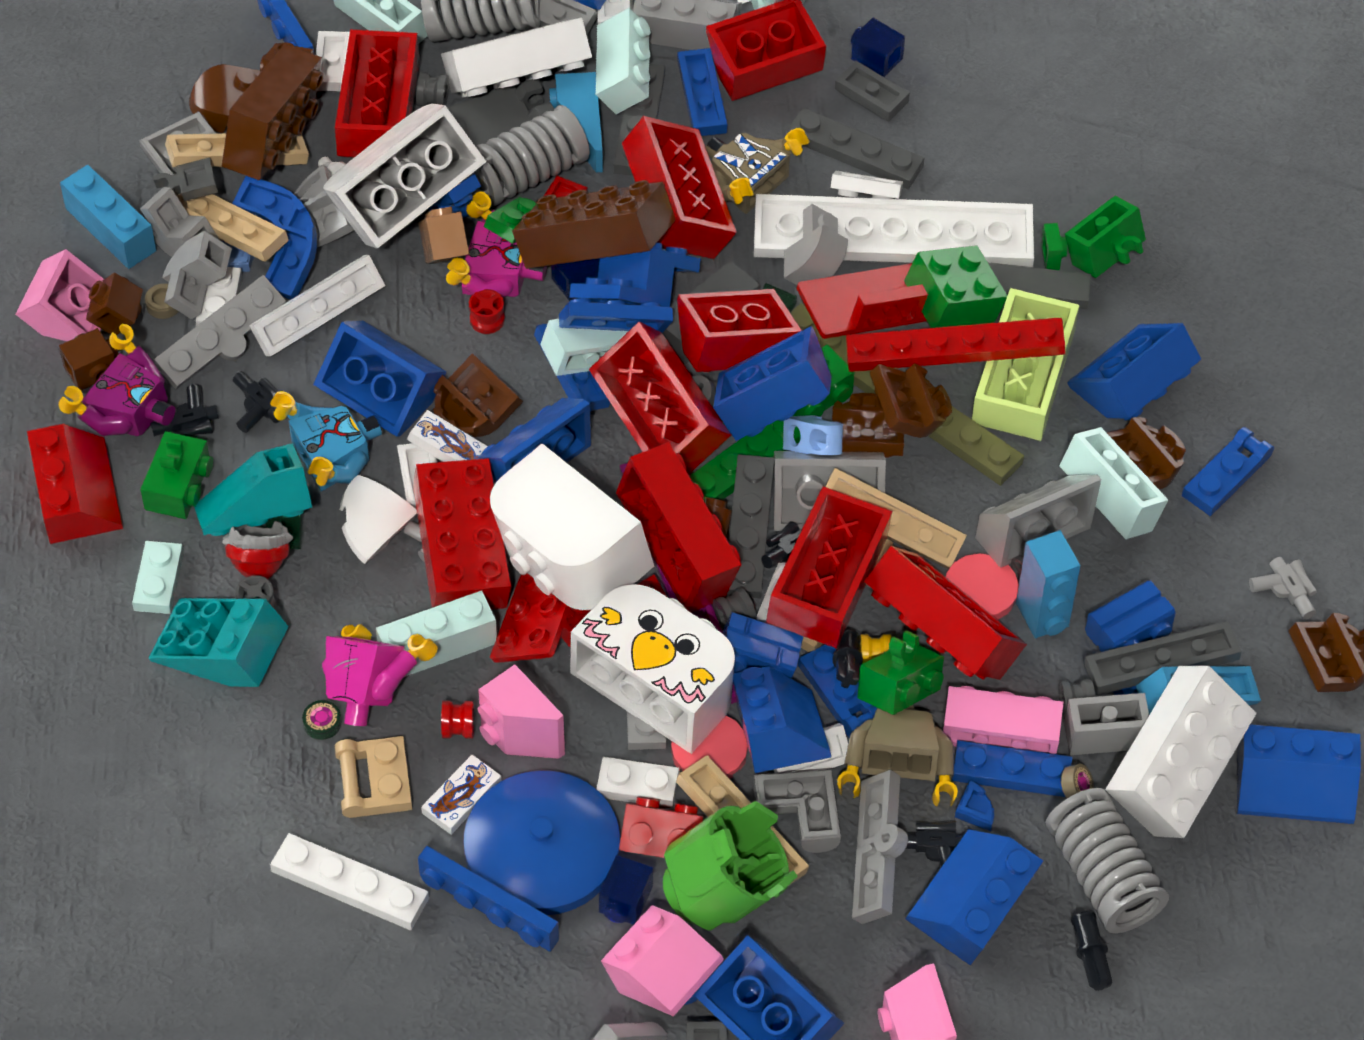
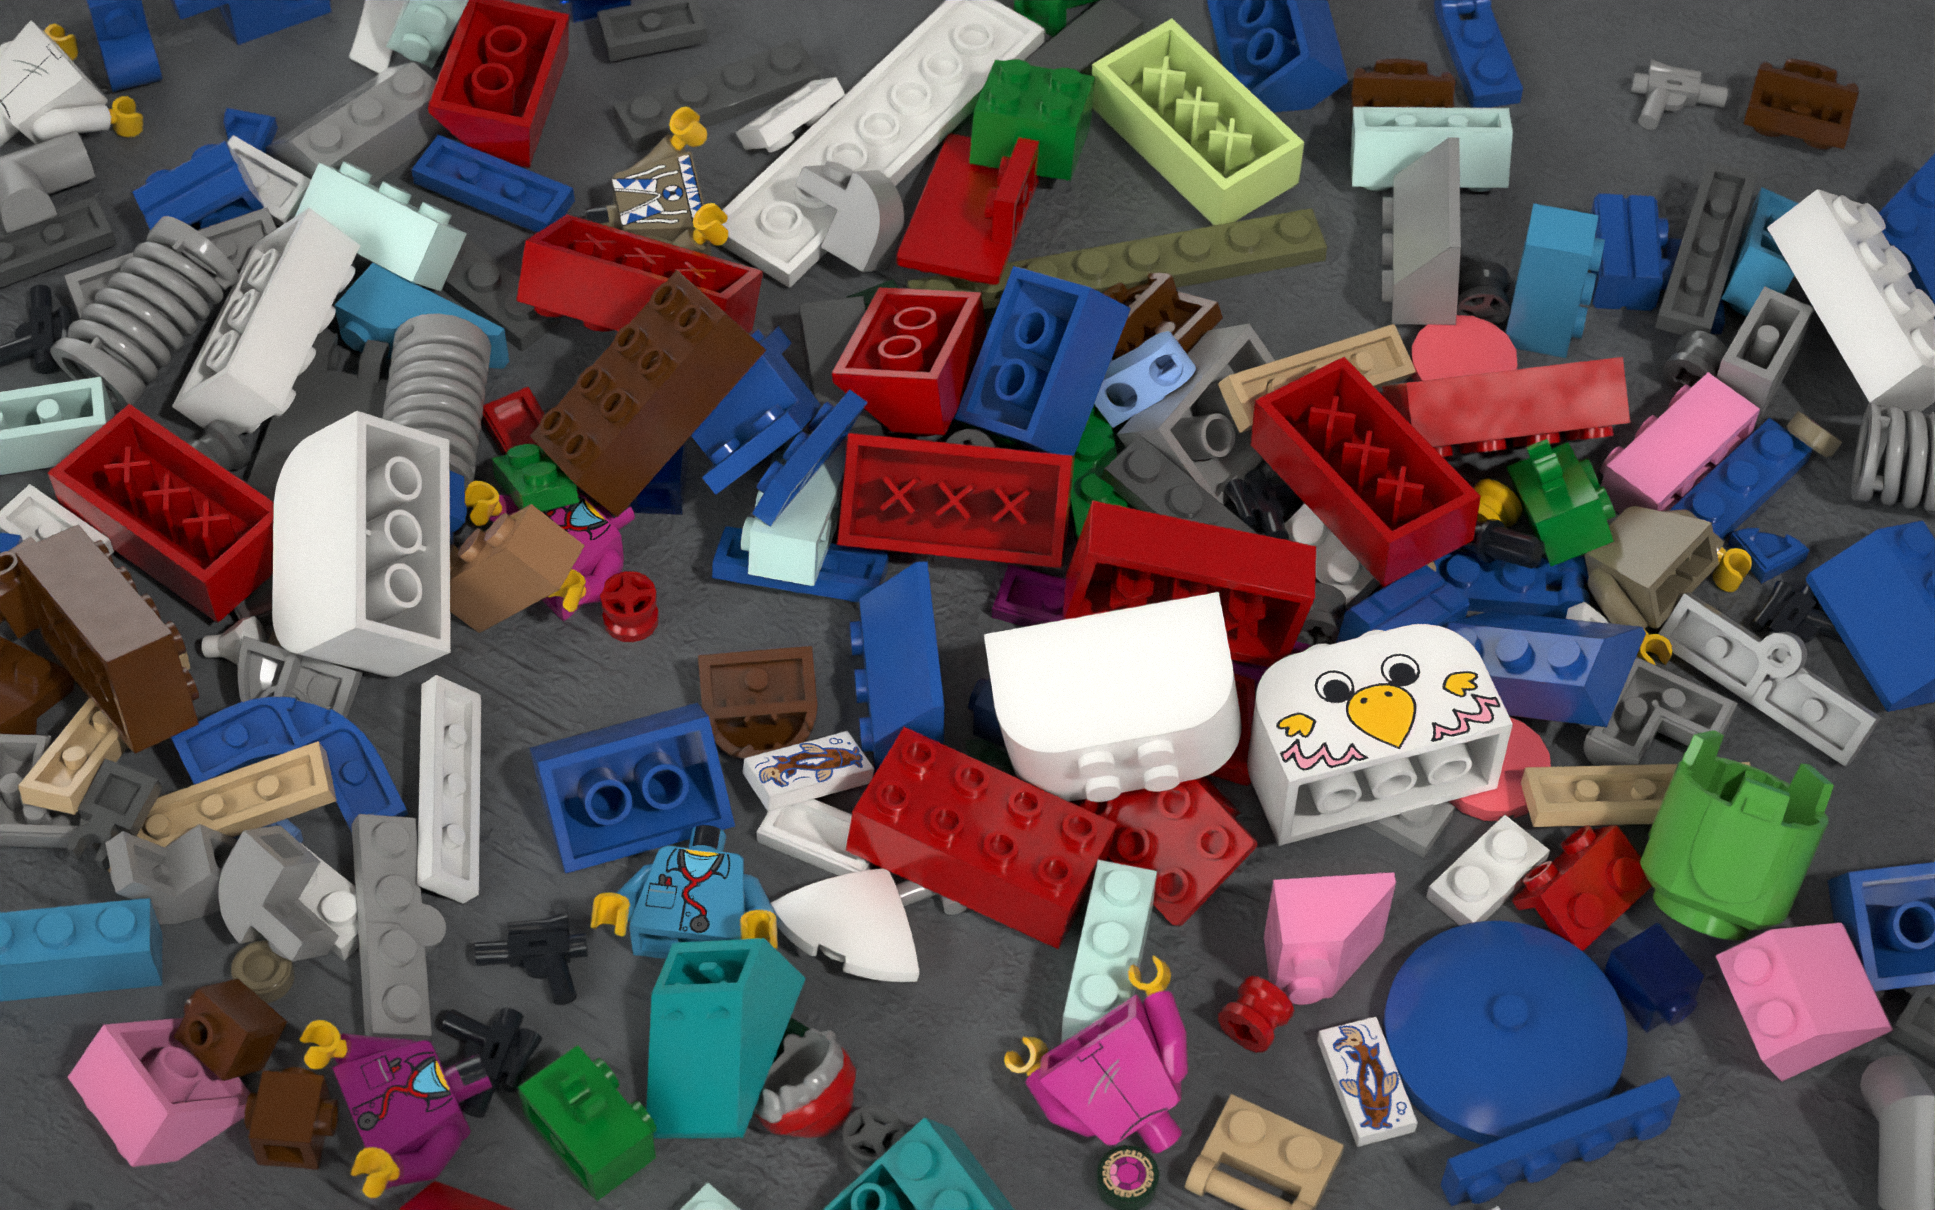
camera: 55 degrees left, 0 degrees up
(910, 400) = (1169, 252): reddish brown slope -> none
(956, 344) = (1133, 161): red plate -> none

